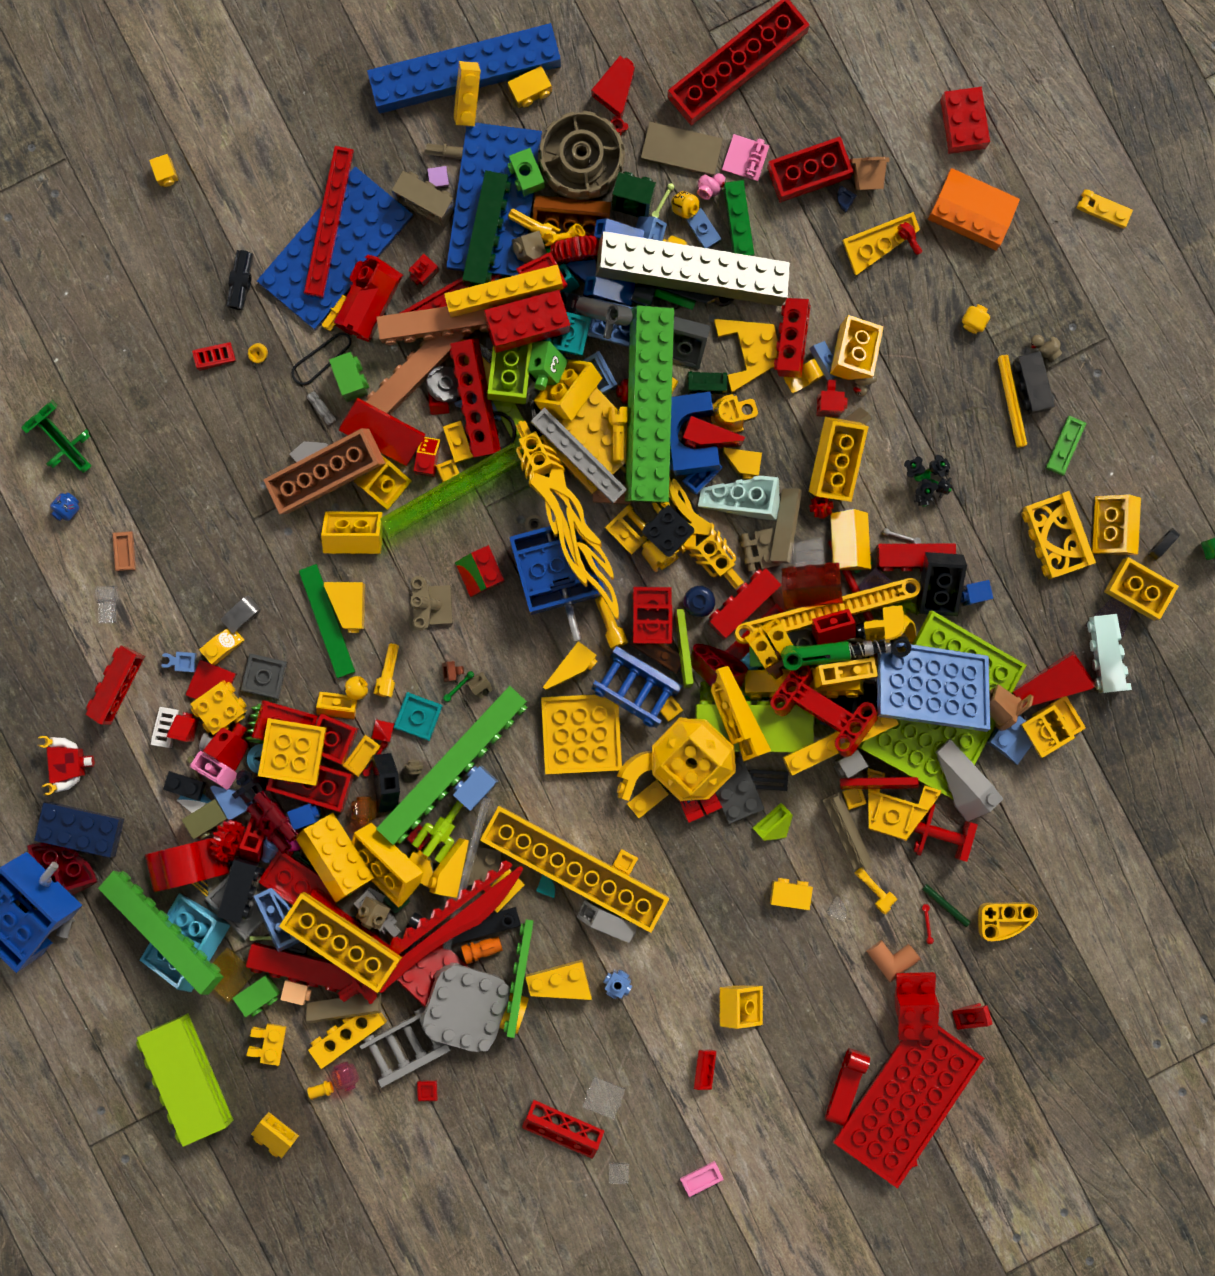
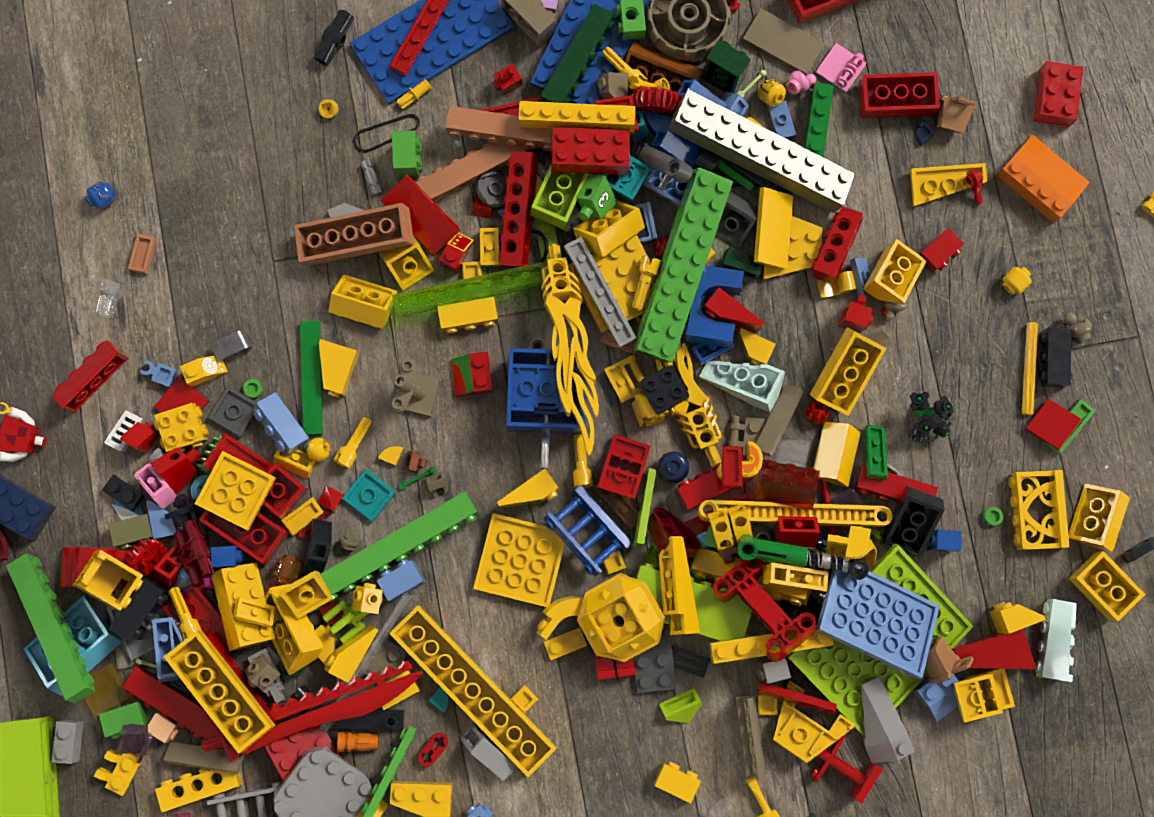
camera: 15 degrees right, 5 degrees down
(42, 420) = (106, 108): green piece -> none
(194, 871) = (102, 576): none -> yellow container
(211, 349) = (271, 92): red slope -> none
(211, 1032) = (67, 741): none -> light grey brick
(273, 1011) = (133, 739): none -> bracket
(274, 649) = (253, 388): none -> bright green tile
(289, 891) = (188, 625): none -> yellow piece
(312, 675) = (280, 424): none -> medium blue brick
(347, 859) = (254, 612): none -> yellow plate
(368, 298) = (449, 86): red brick -> none
(392, 828) = (306, 594): none -> yellow slope
(427, 671) = (391, 455): none -> yellow tile
(449, 814) = (367, 598): none -> yellow brick
(458, 515) = (468, 315): none -> yellow brick
(550, 931) = (429, 746): none -> red beam
(726, 340) = (773, 228): none -> yellow tile
(729, 413) = (755, 298): yellow container -> none
(754, 586) = (731, 466): none -> red tile
(765, 584) = (753, 463): none -> yellow animal
(887, 528) = (876, 452): none -> green tile
(894, 312) = (941, 249): none -> red brick
(1016, 554) = (992, 516): none -> bright green tile
(1049, 449) = (1053, 424): none -> red tile
(1061, 645) = (1013, 617): none -> yellow slope

